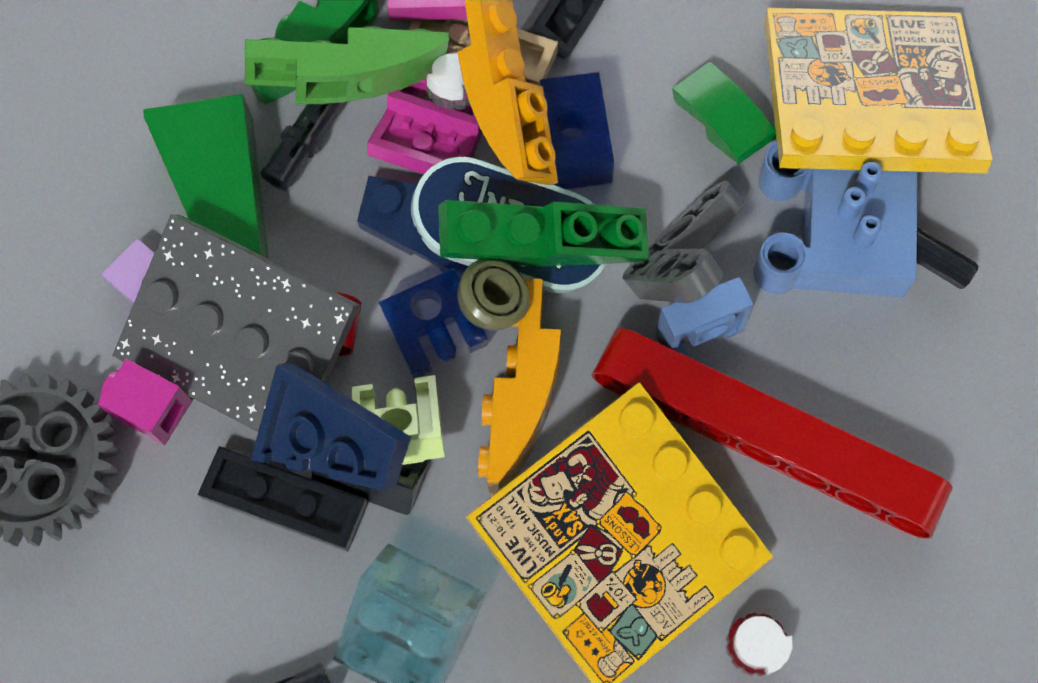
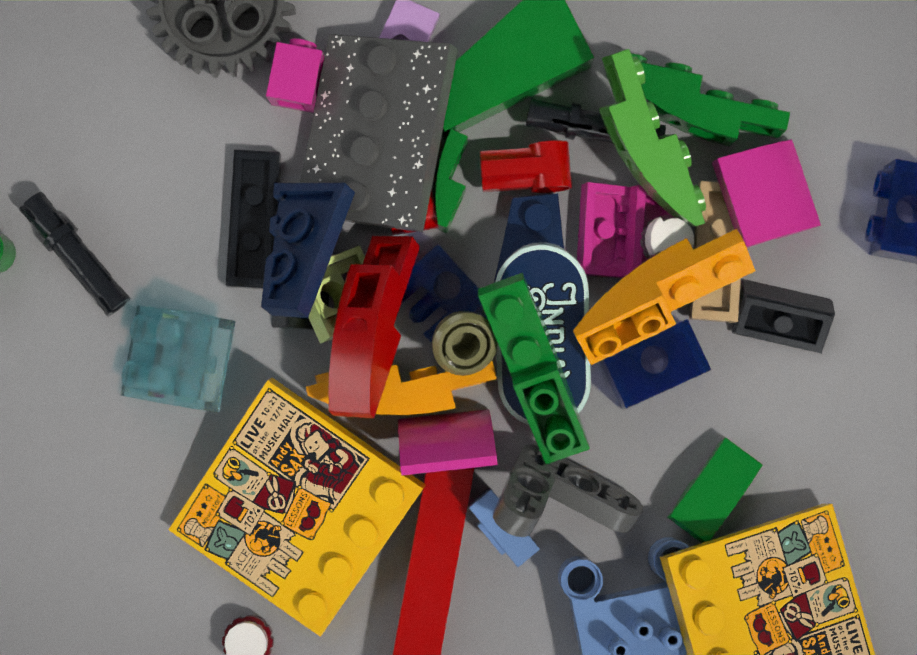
camera: 65 degrees right, 15 degrees up
(325, 272) = (449, 192): none -> green slope
(333, 186) = (540, 167): none -> red piece
(445, 388) = (364, 326): none -> red slope
(595, 349) = (446, 442): none -> dark pink slope

